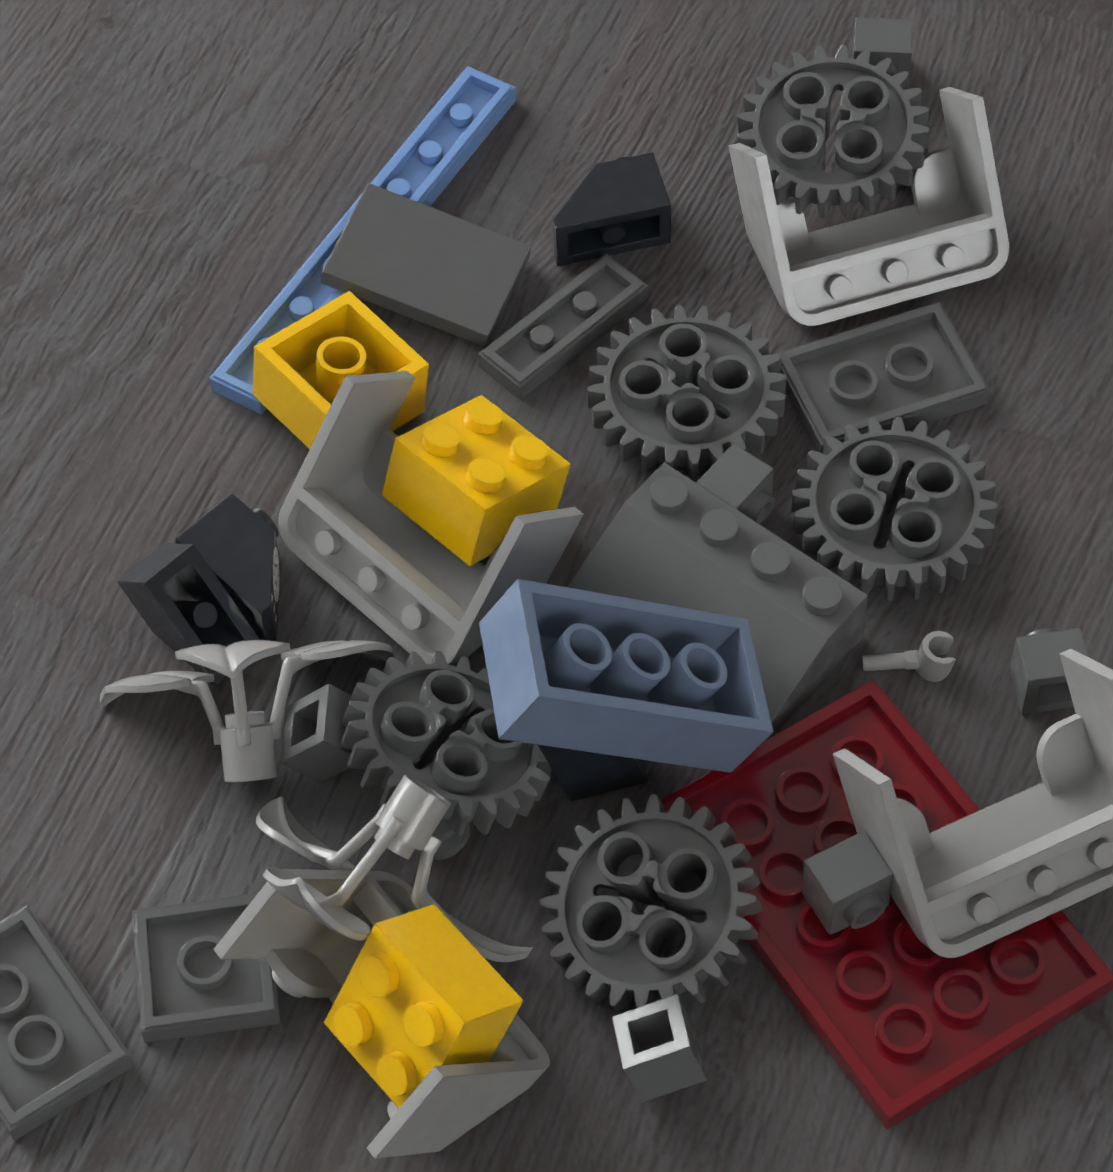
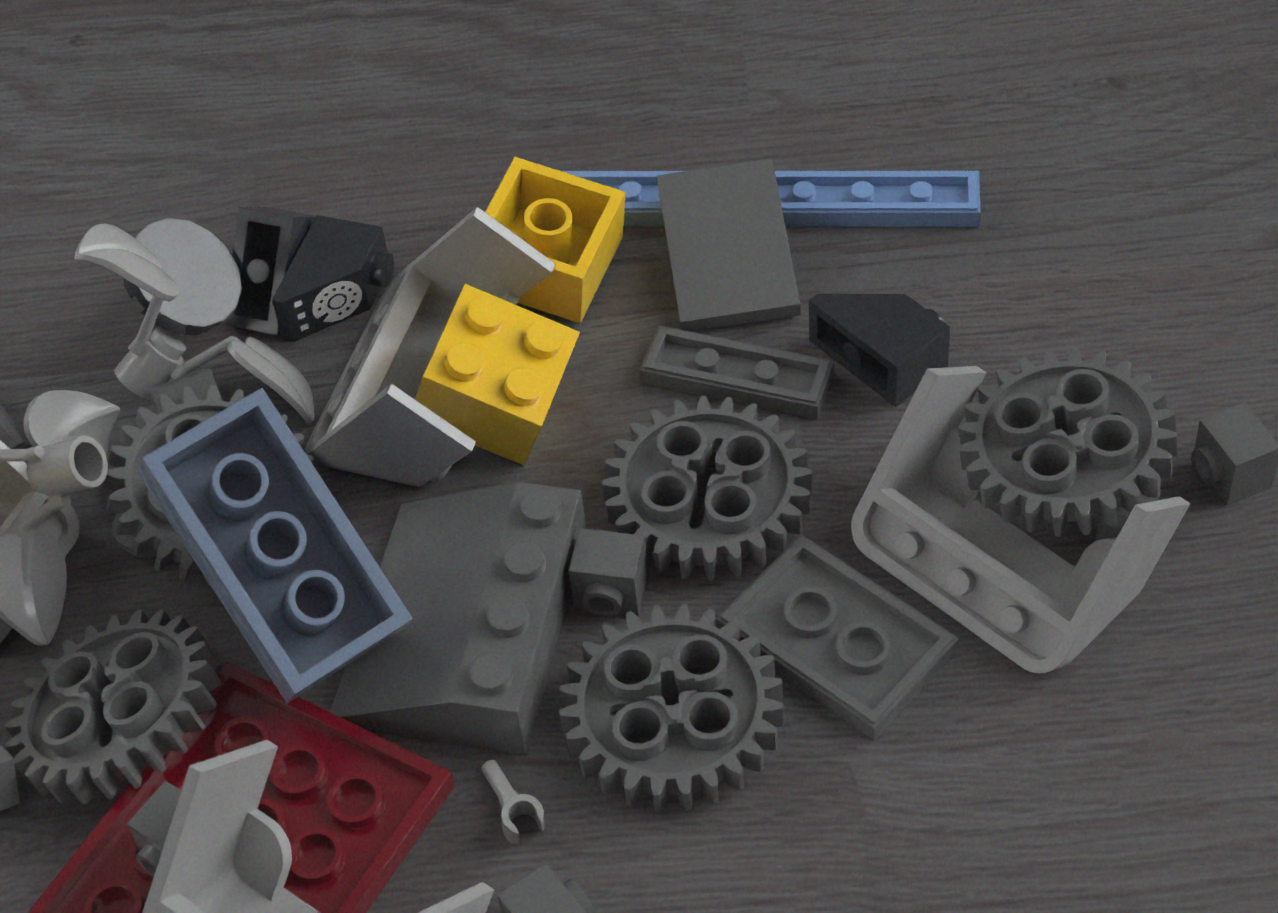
camera: 65 degrees right, 5 degrees down
(175, 680) = (201, 269): none -> tile

